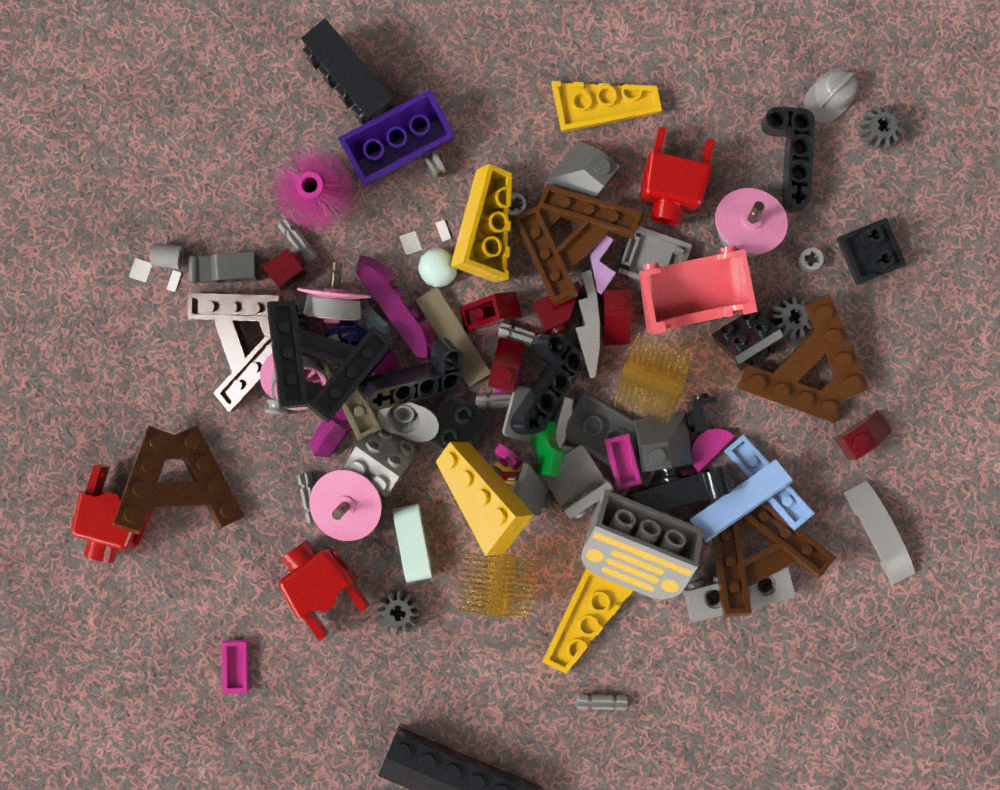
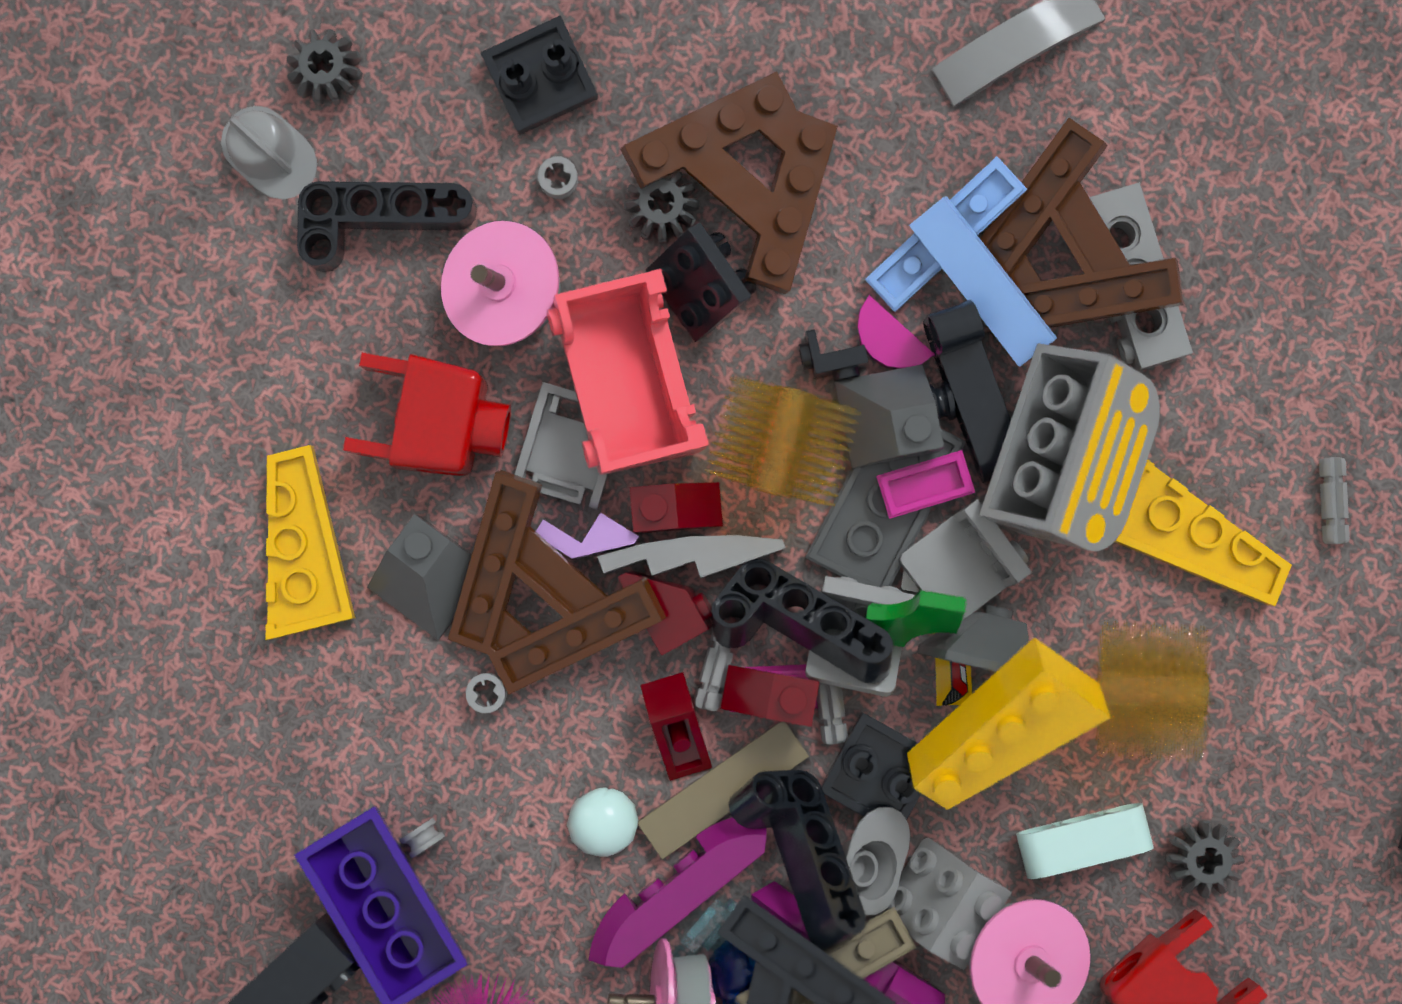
camera: 90 degrees left, 0 degrees up
(411, 243) = (562, 870): white sticker -> none
(485, 226) = (528, 743): yellow wedge -> none
(505, 457) = (931, 686): dark pink tile -> none
(863, 436) = (857, 76): dark red slope -> none

